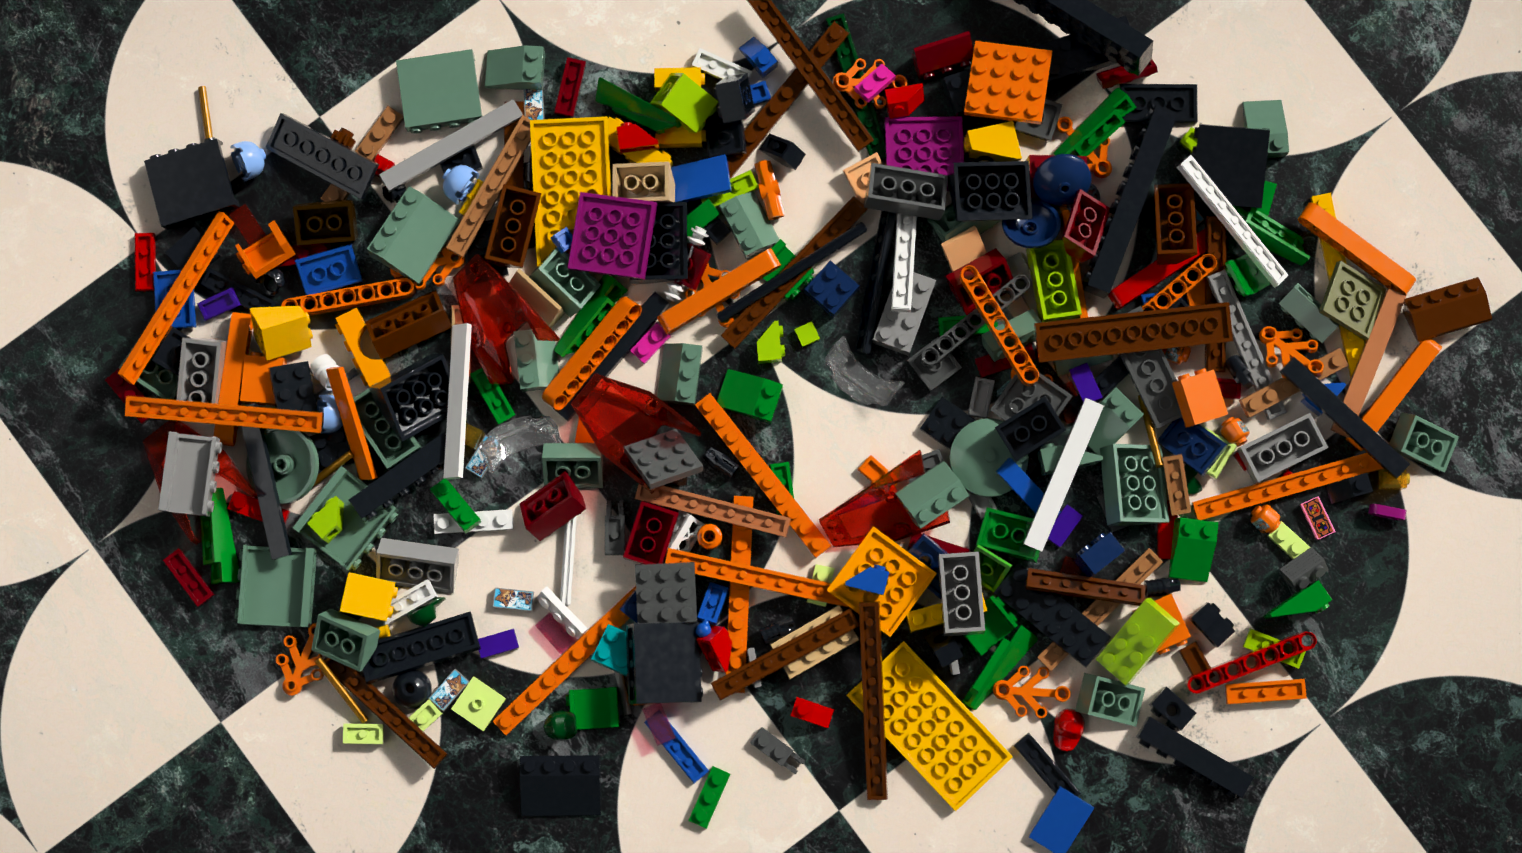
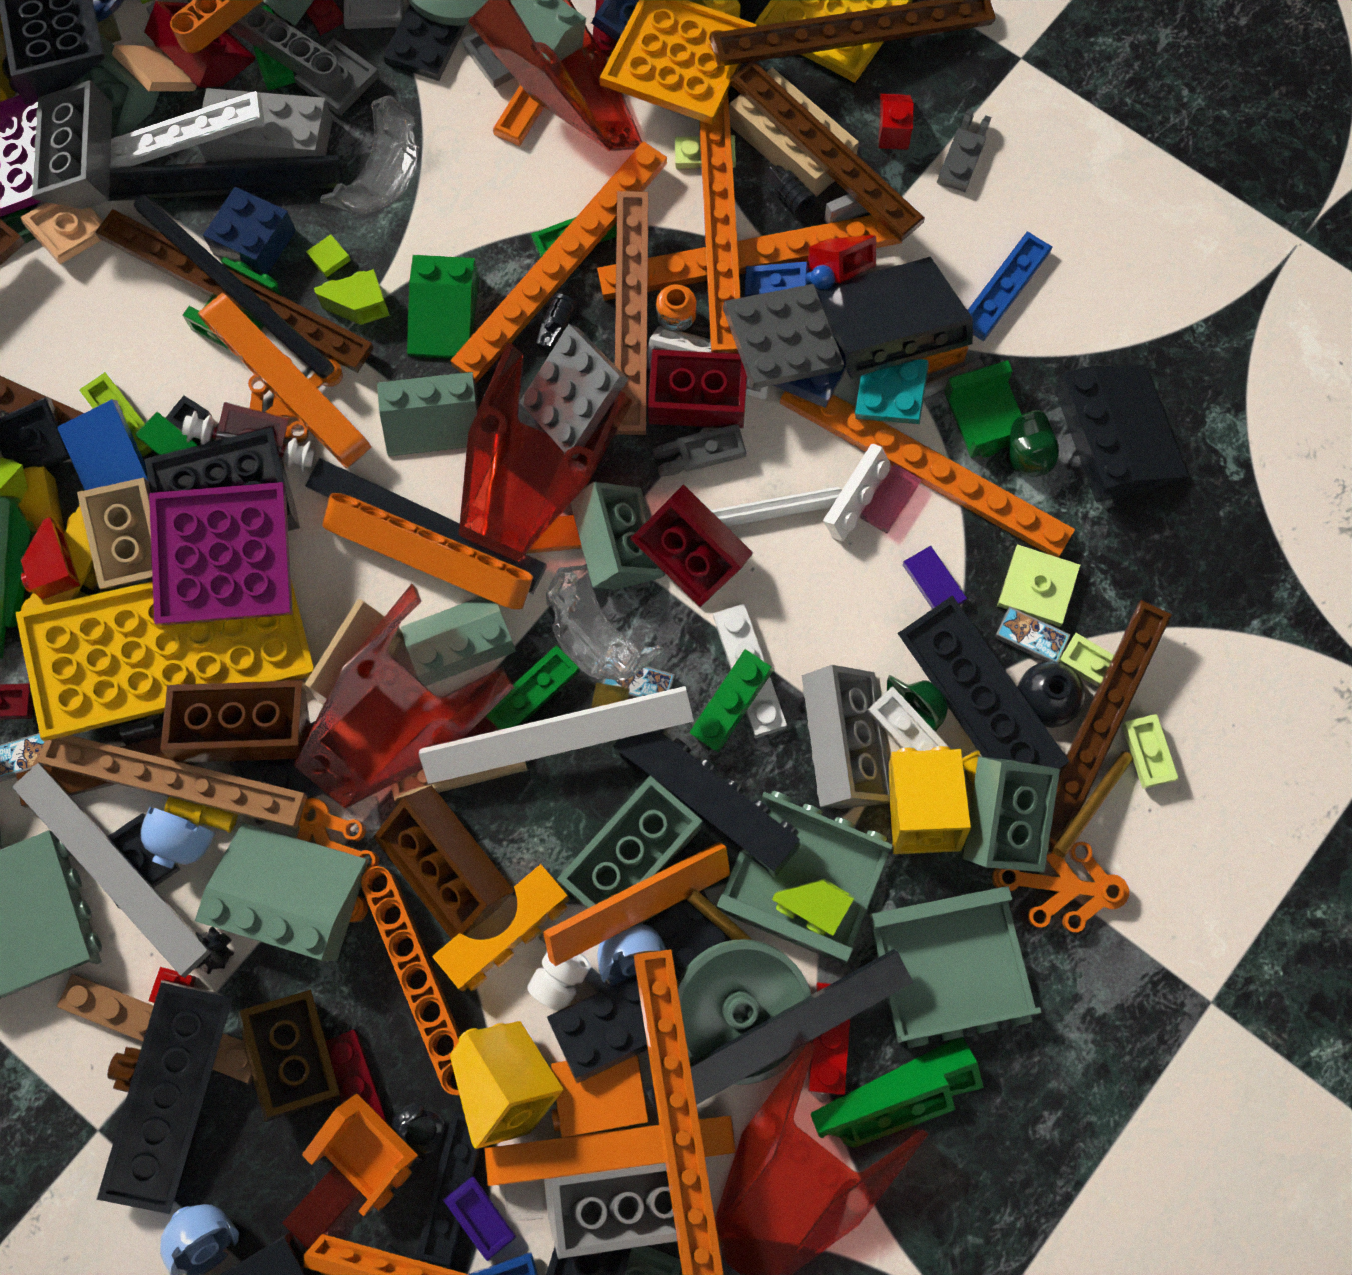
camera: 105 degrees left, 10 degrees down
(188, 577) = (985, 1130): dark red plate -> none
(190, 474) = (809, 1167): light grey panel -> none
(329, 270) = (375, 1030): blue tile -> none
(414, 396) = (564, 808): black slope -> none
(513, 599) = (856, 575): tile -> none
(563, 240) = (243, 635): blue tile -> none
(565, 286) = (319, 609): sand green slope -> none
(590, 315) = (361, 571): green wedge -> none
(650, 343) = (391, 473): dark pink plate -> none
(658, 723) = (989, 306): clear pink tile -> none
(709, 797) = (1064, 223): green plate -> none
(749, 224) = (175, 370): sand green slope -> none
(769, 190) = (107, 356): orange piece -> none
(782, 151) = (40, 352): black slope -> none
(870, 580) = (681, 56): blue slope -> none

